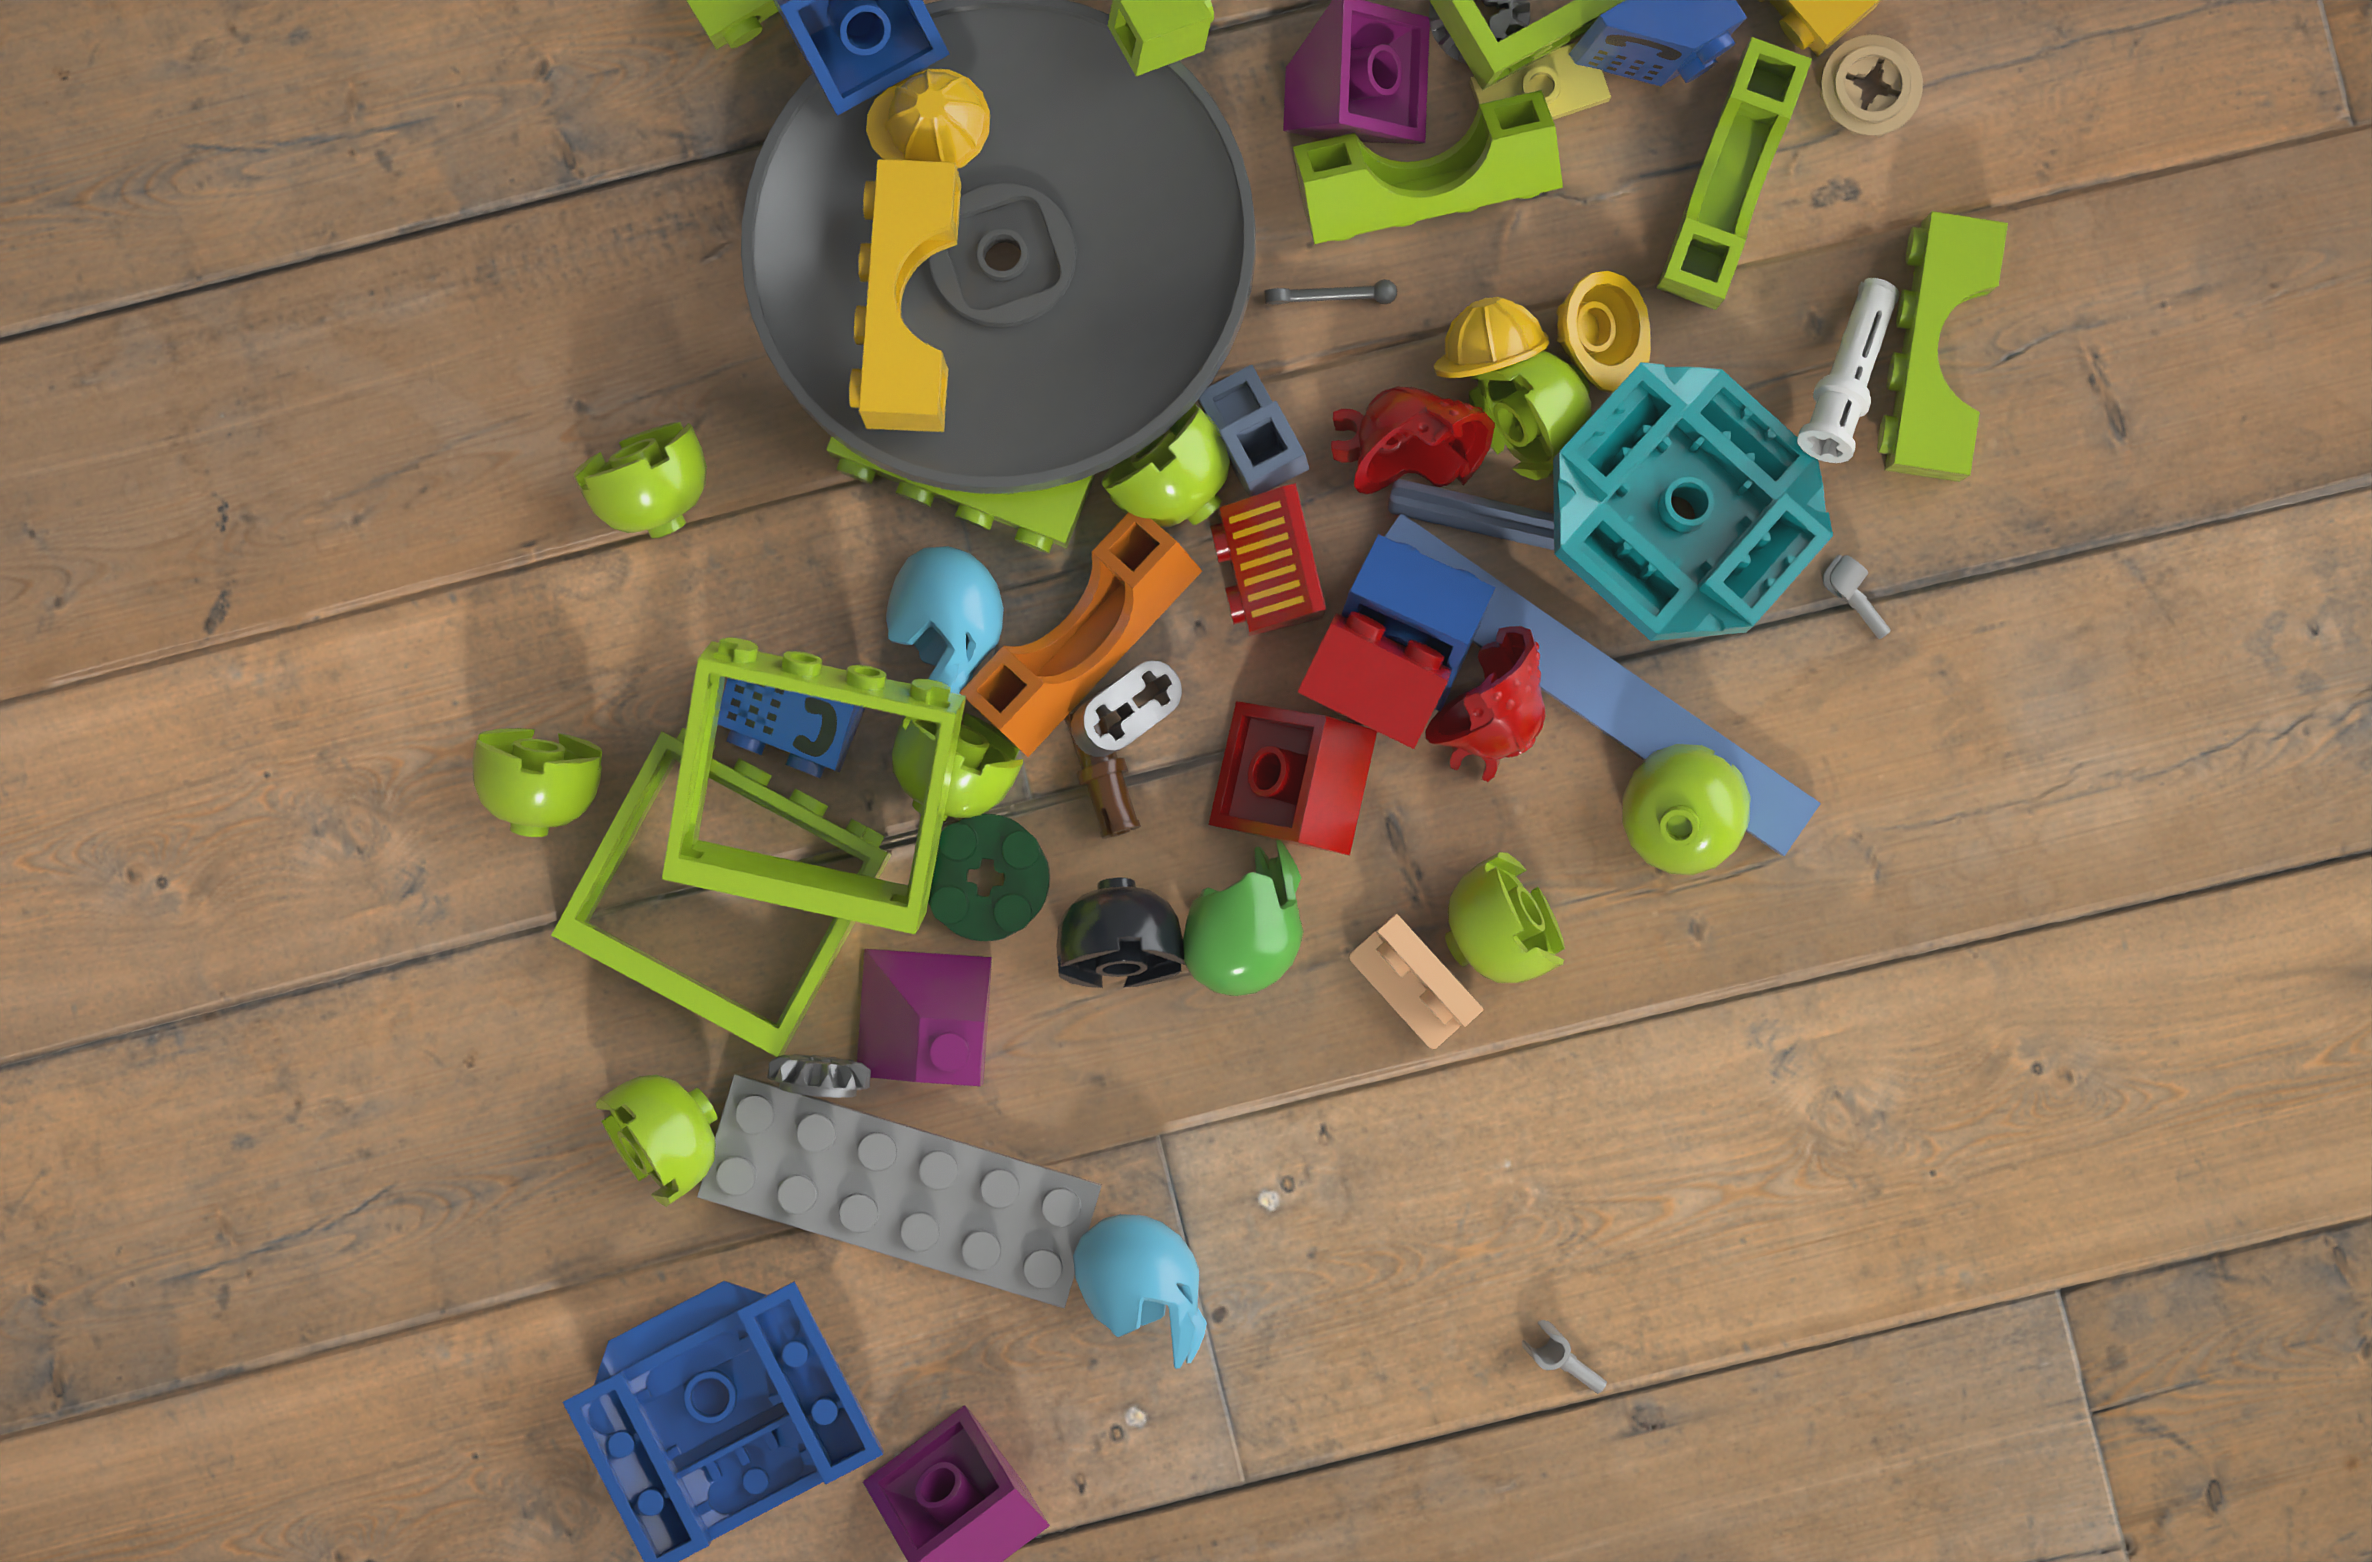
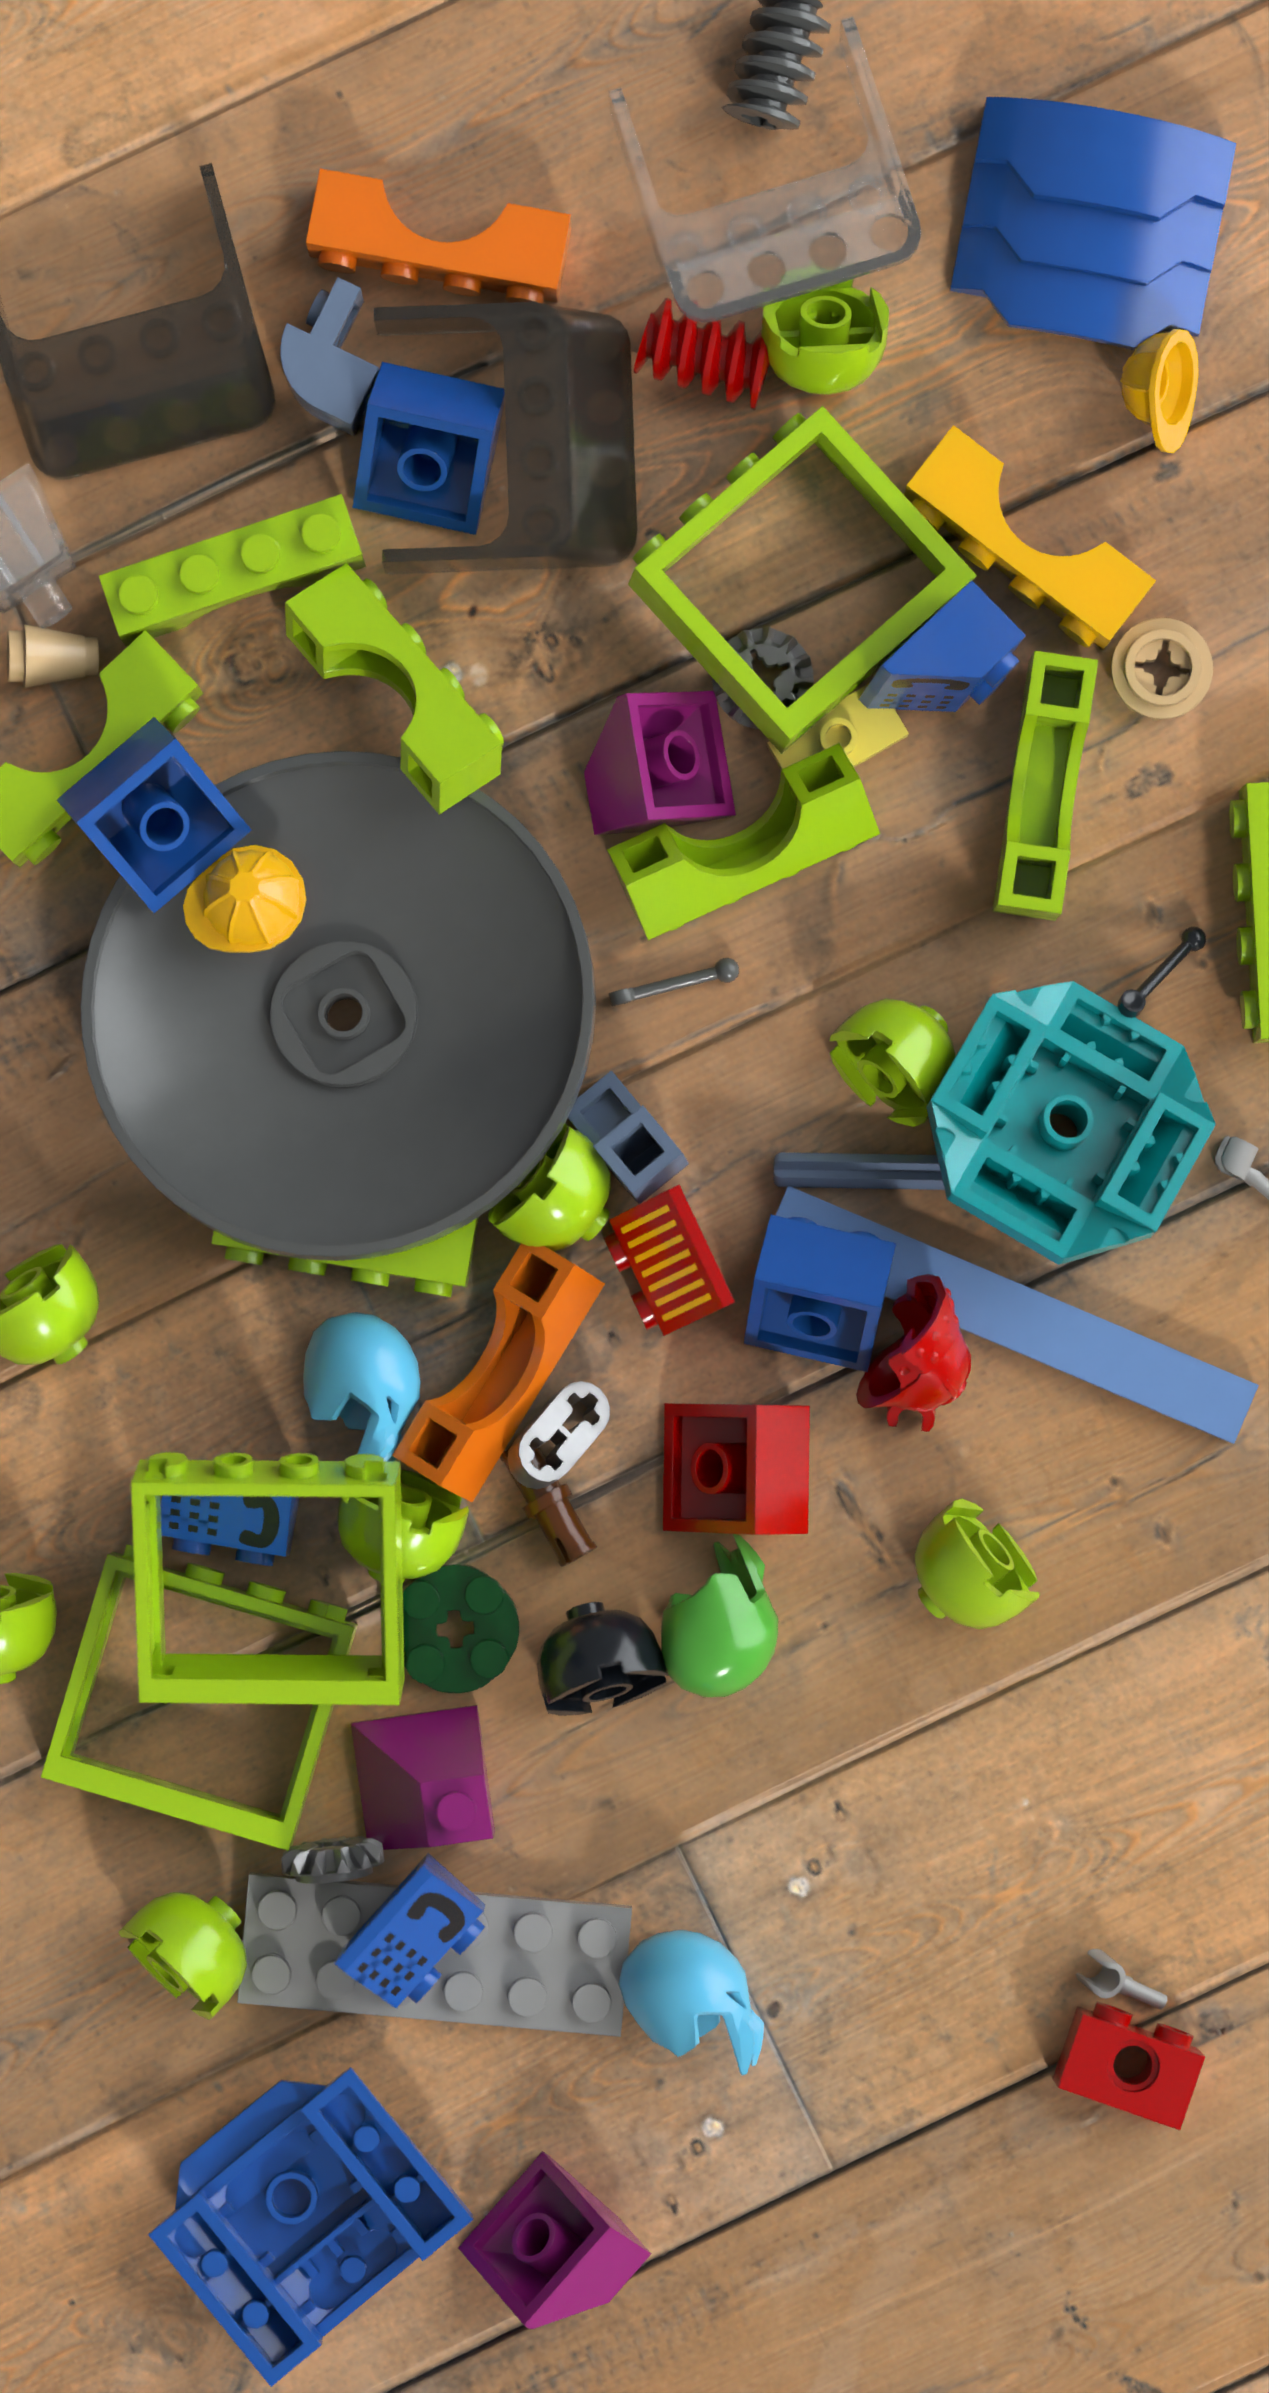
camera: 15 degrees left, 0 degrees up
(881, 1162) = (411, 1933): none -> blue slope
(913, 218) = (249, 1001): yellow arch -> none
(1376, 678) = (797, 1358): red slope -> none
(1414, 982) = (897, 1645): light nougat bracket -> none
(1415, 434) = (781, 1106): red helmet -> none
(1490, 337) = (840, 998): yellow piece -> none
(1577, 1473) = (1157, 2093): none -> red brick
(1604, 328) = (951, 964): yellow piece -> none
(1685, 809) = (1127, 1419): lime cylinder -> none
(1777, 401) = (1133, 1001): none -> black hinge
(1844, 393) = (1197, 980): white pin -> none

